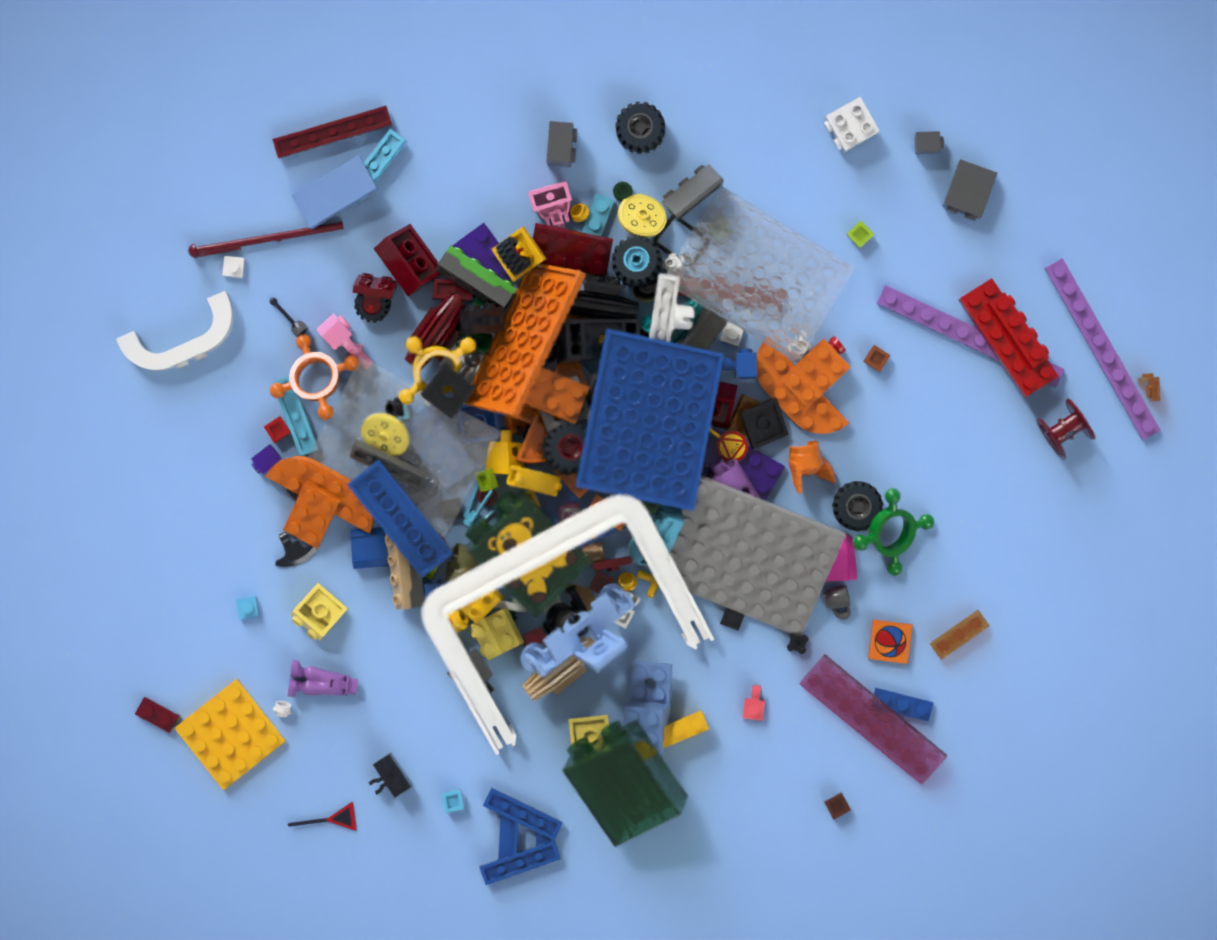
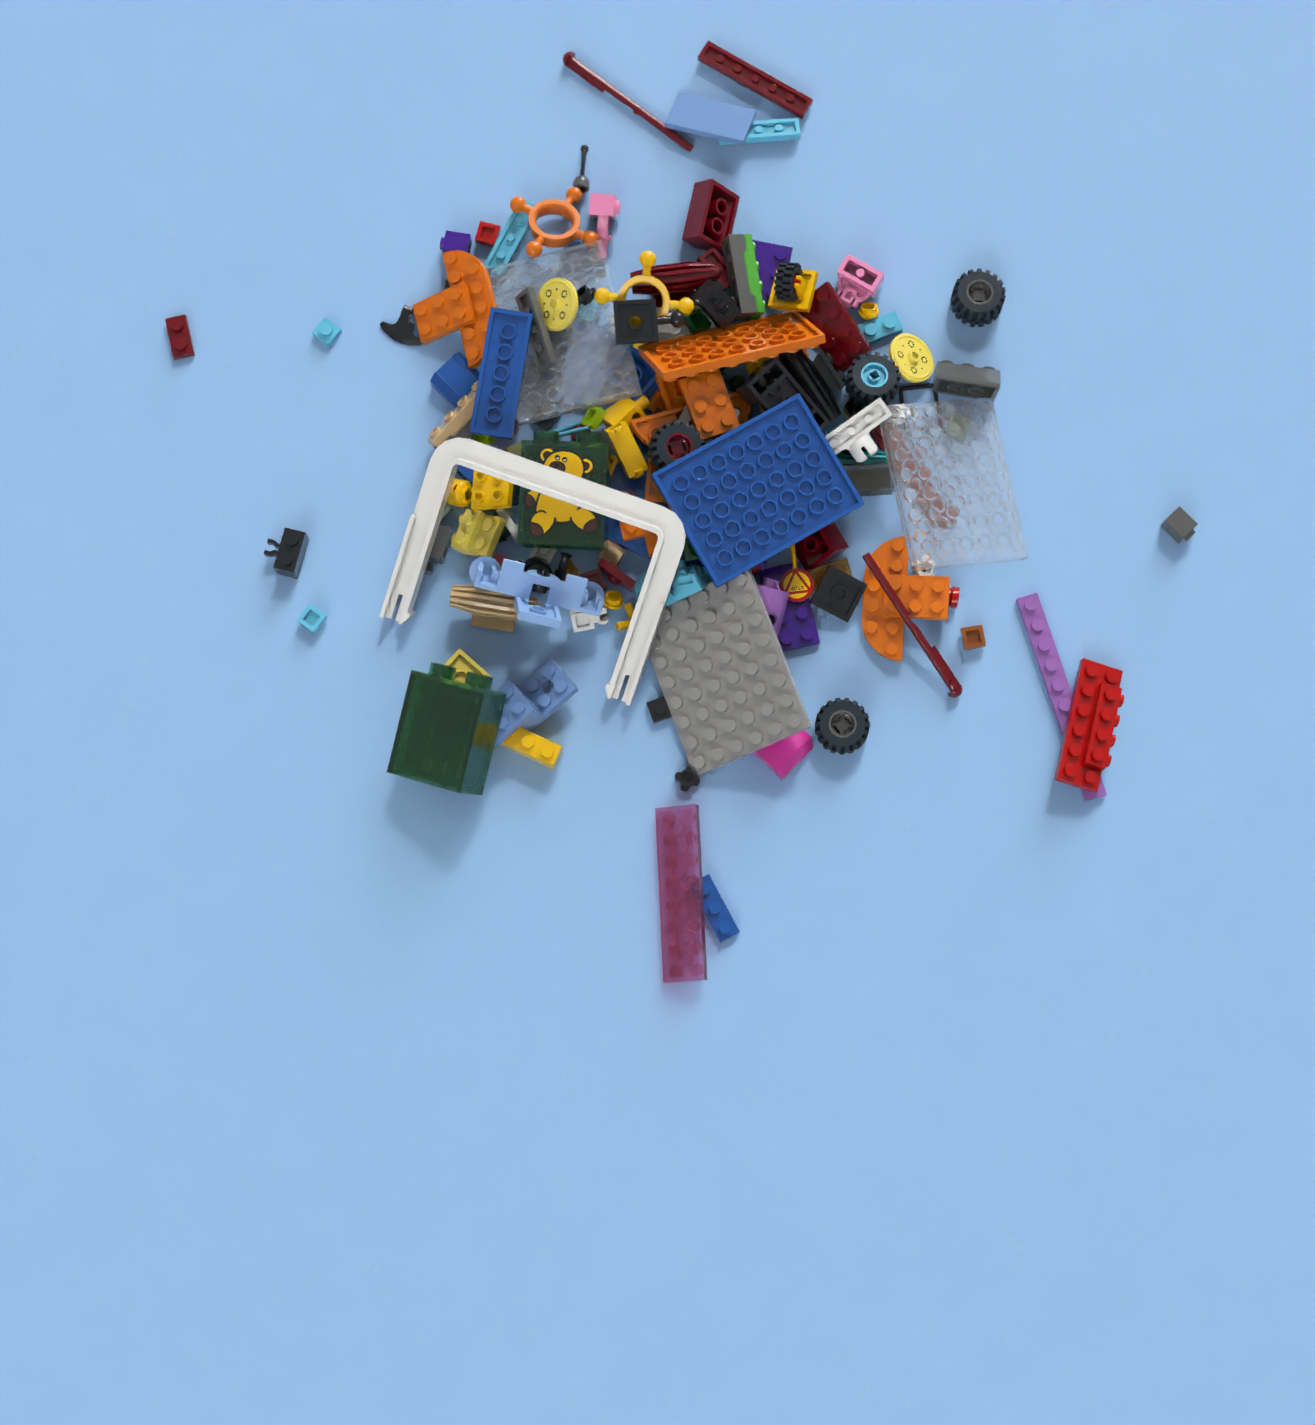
camera: 45 degrees right, 10 degrees down
(197, 348) = (488, 118): white arch -> none
(230, 734) = (213, 404): yellow plate -> none
(233, 267) = (583, 98): white plate -> none
(282, 708) = (269, 425): white plate -> none
(318, 612) = (371, 385): light yellow plate -> none
(320, 681) = (315, 433): medium lavender piece -> none
(344, 817) = (223, 548): piece -> none
(373, 296) = (656, 214): dark red plate -> none
(512, 814) = (303, 705): blue plate -> none
(560, 144) = (907, 248): dark grey brick -> none
(622, 190) = (916, 328): dark green plate -> none
(731, 334) = (884, 509): white plate -> none
(744, 364) = (868, 535): blue brick -> none
(753, 706) = (603, 790): coral plate -> none
(808, 461) = (840, 651): orange helmet -> none
(837, 805) = (583, 929): reddish brown plate -> none
(838, 598) = (753, 778): dark grey piece -> none
(851, 125) = (1135, 453): white brick -> none
(860, 234) = (1057, 537): lime plate -> none
(864, 398) = (931, 652): none -> dark red bar
(890, 641) = (757, 852): tile -> none
(906, 537) = (879, 793): green piece -> none
(959, 634) = (814, 902): clear orange plate -> none
(969, 190) = (1174, 590): dark grey brick -> none
(1060, 431) = (1049, 830): piece -> none
(1102, 349) = (1151, 812): medium lavender plate -> none
(1153, 389) = (1157, 879): clear orange bracket -> none

